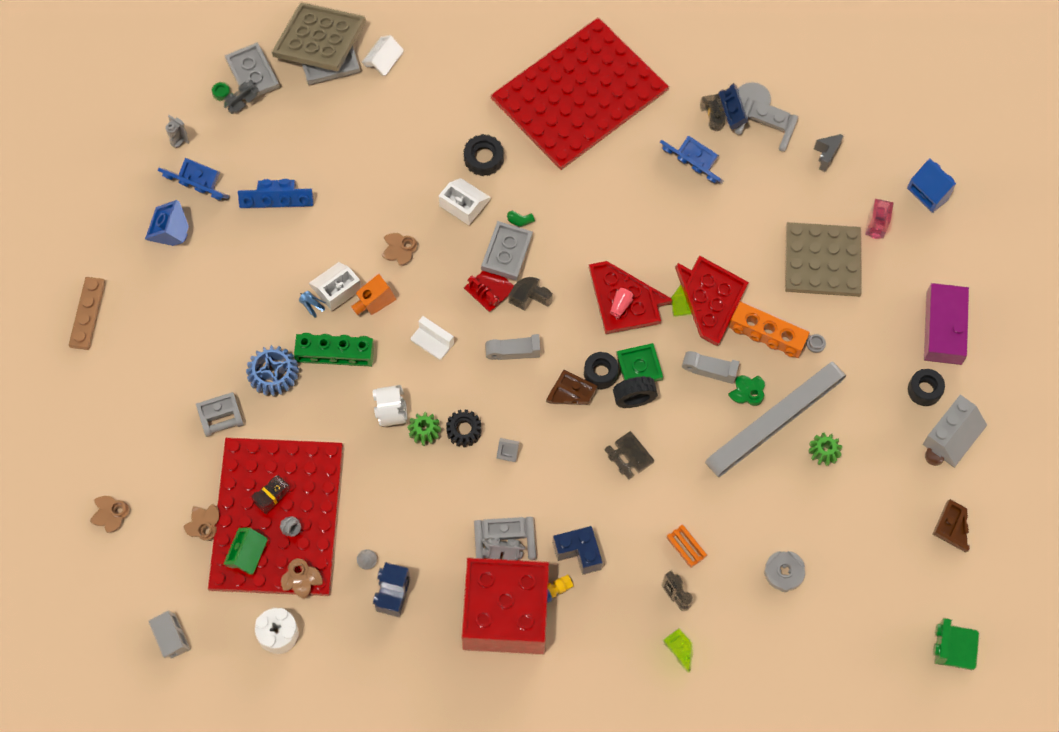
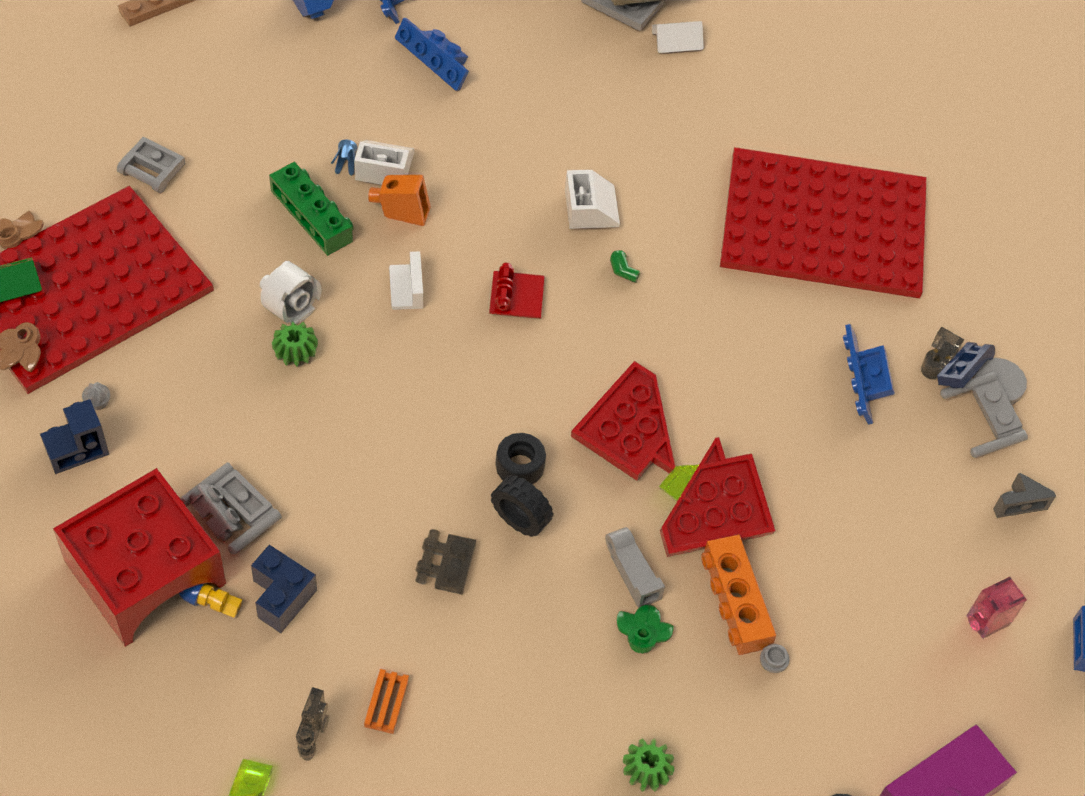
camera: 45 degrees right, 10 degrees down
(270, 494) = (92, 257): clear smoke leg -> none
(288, 364) = (240, 180): medium blue gear -> none
(290, 526) = (69, 297): light grey plate -> none
(397, 248) = (483, 188): medium nougat plate -> none
(458, 418) = (329, 392): black tyre -> none
(483, 141) = (656, 201): black tyre -> none
(506, 250) = (572, 277): light grey plate -> none
(507, 450) = (340, 436): light grey plate -> none
(513, 348) = (467, 362): light grey leg -> none
(529, 289) = (546, 327): clear smoke brick -> none
(571, 390) = (470, 448): reddish brown wing -> none
(621, 302) = (617, 418): coral cone -> none
(639, 362) = (568, 492): green plate -> none
(775, 419) = (636, 682): light grey beam -> none
(823, 259) = (887, 592): dark tan plate -> none

